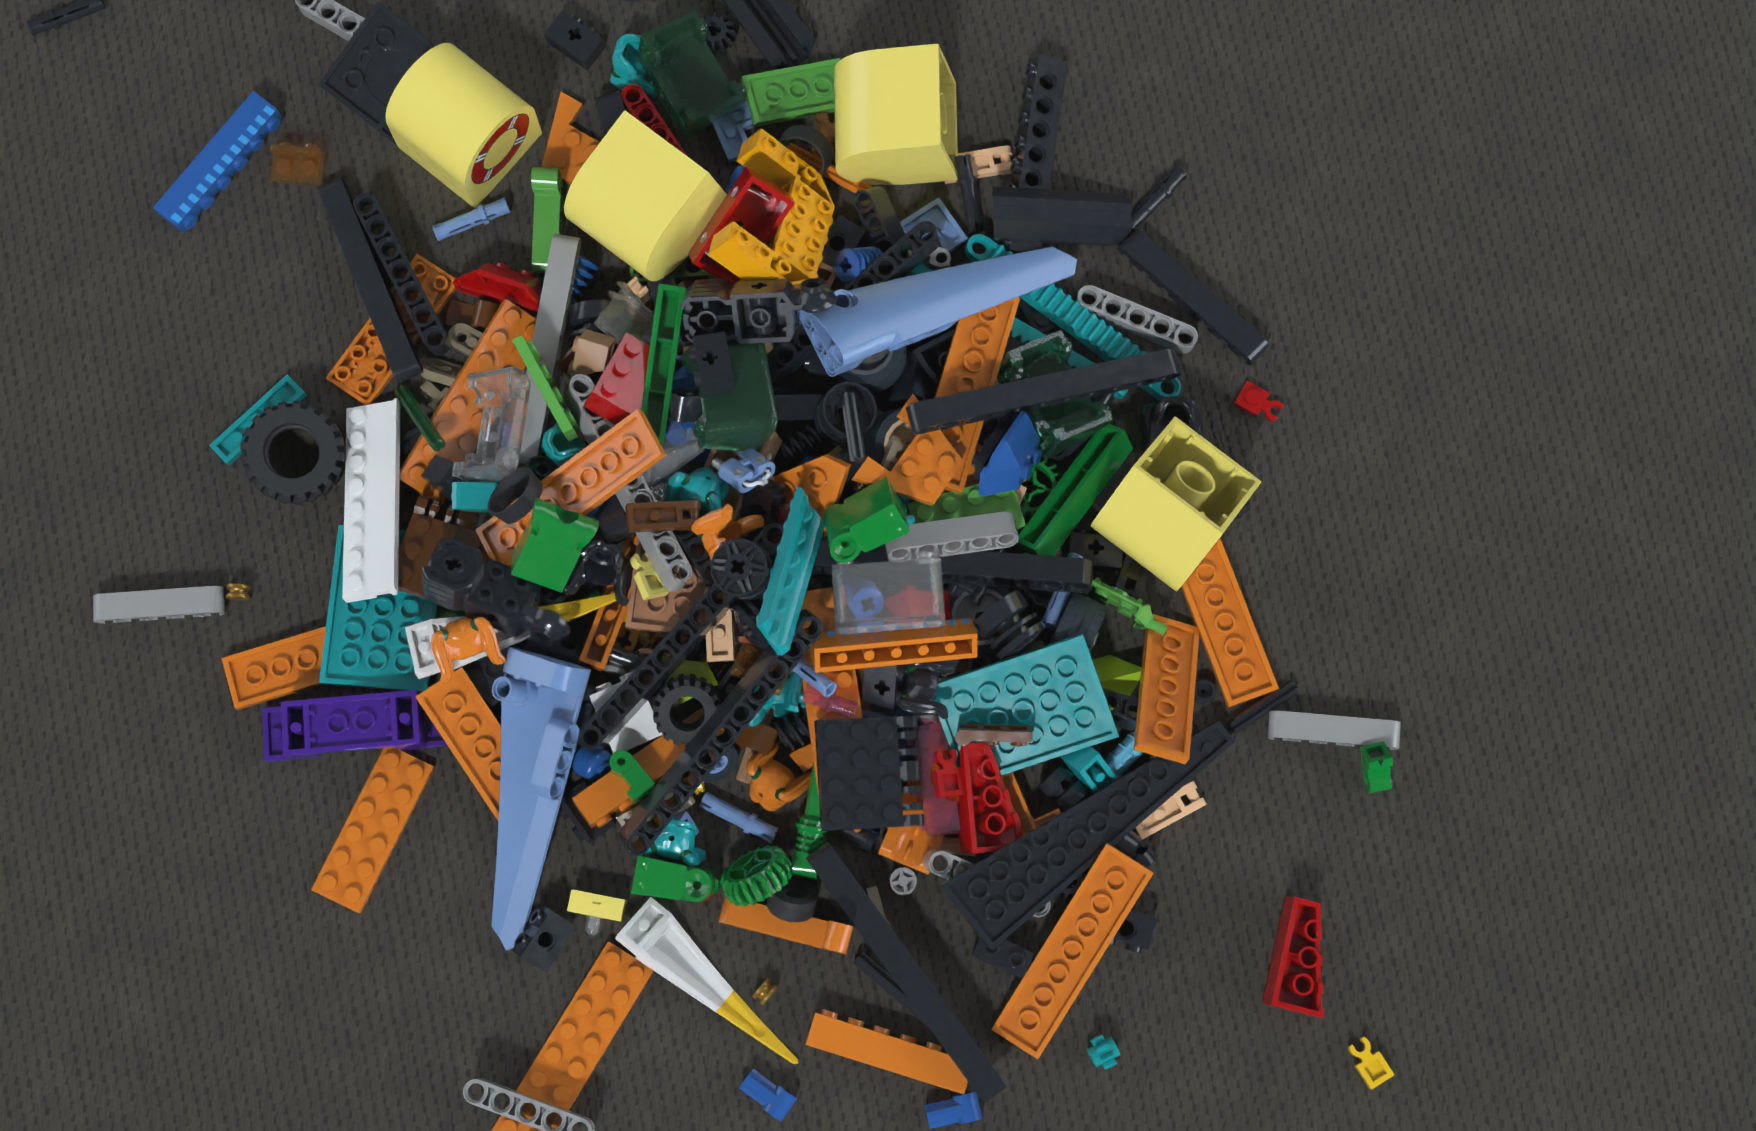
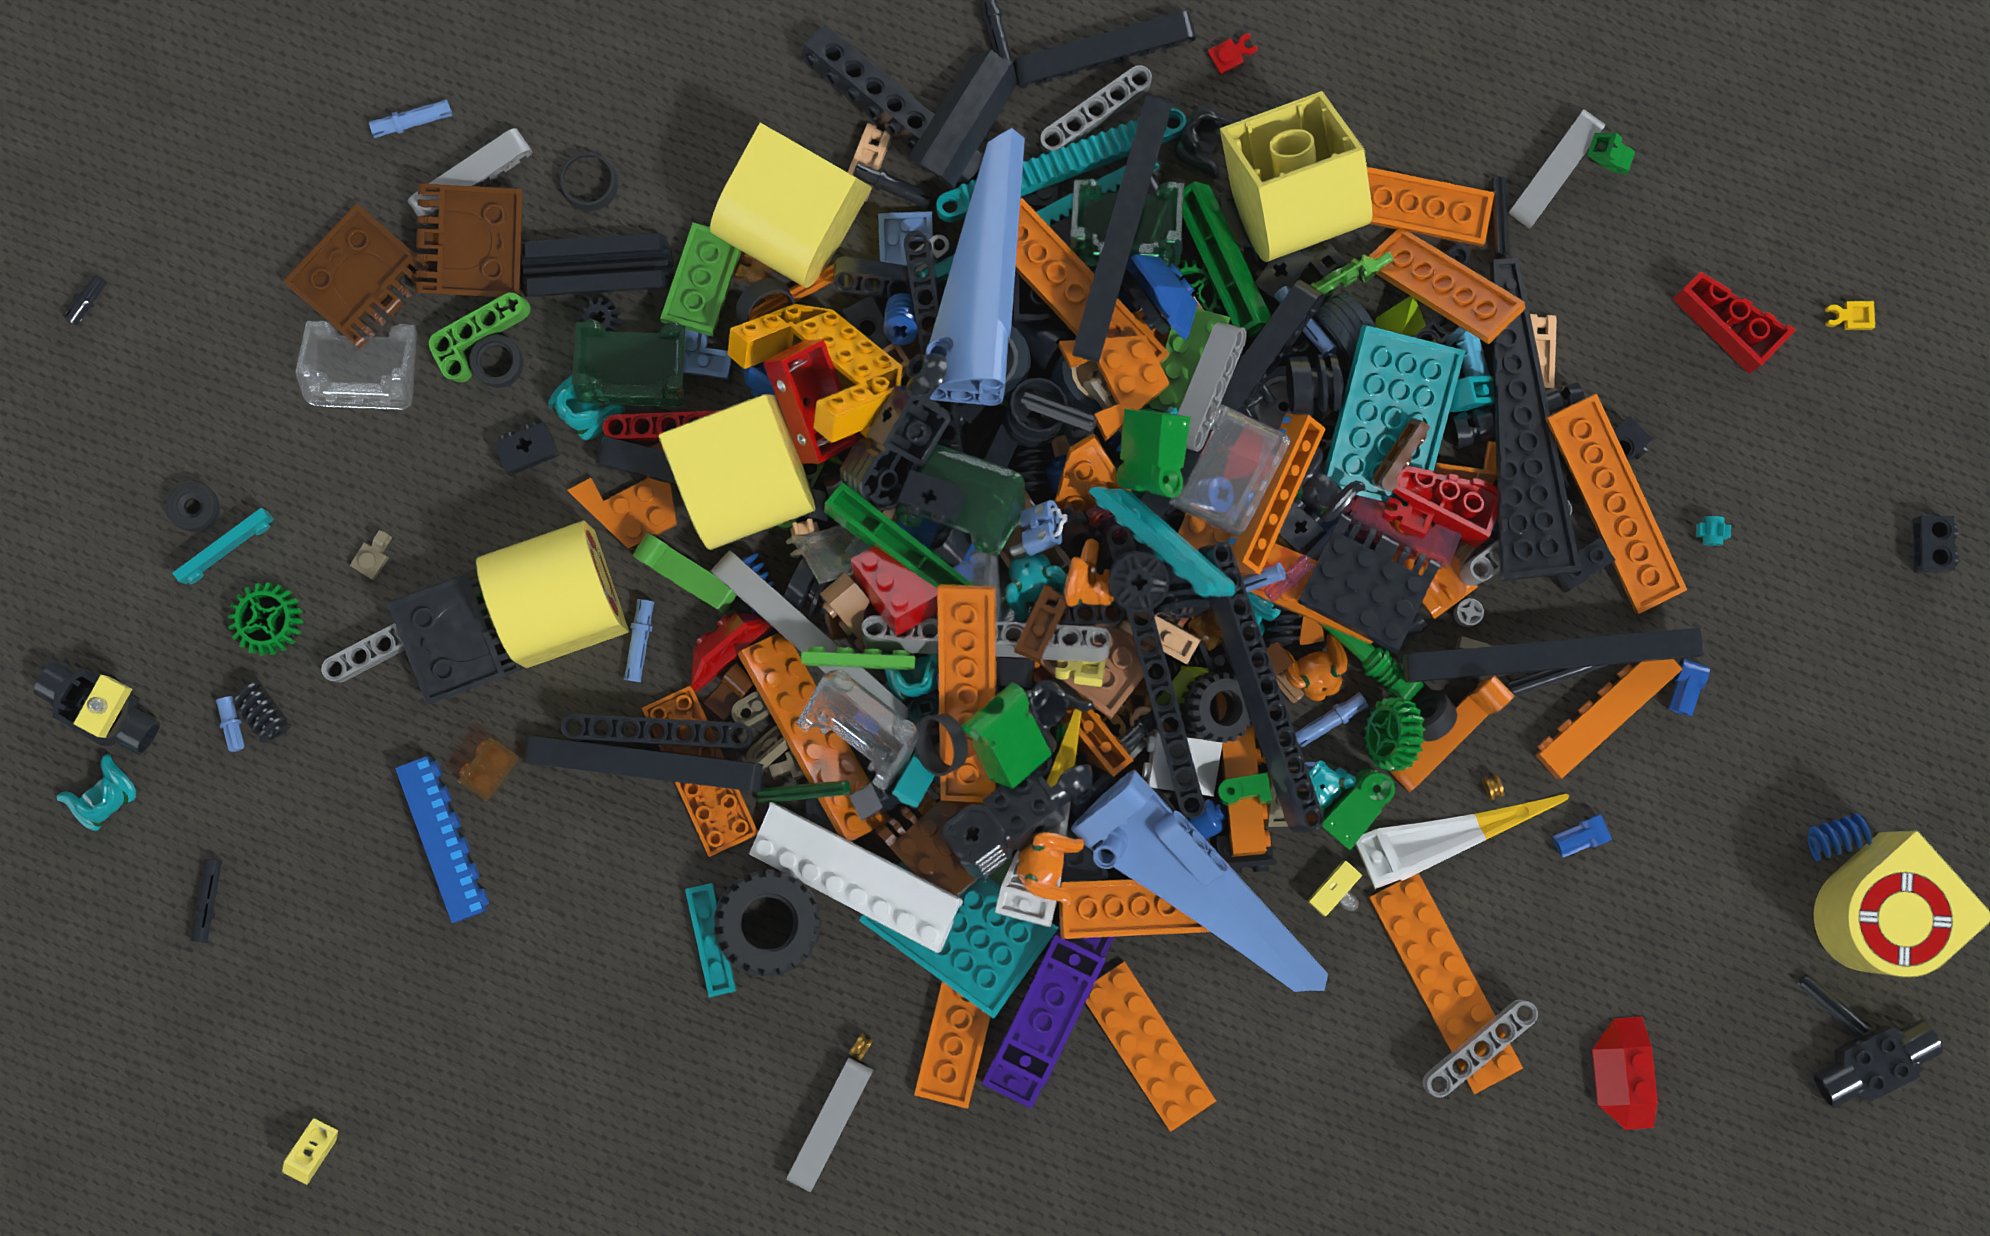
camera: 60 degrees left, 5 degrees up
(544, 952) = (1336, 950): black brick -> none

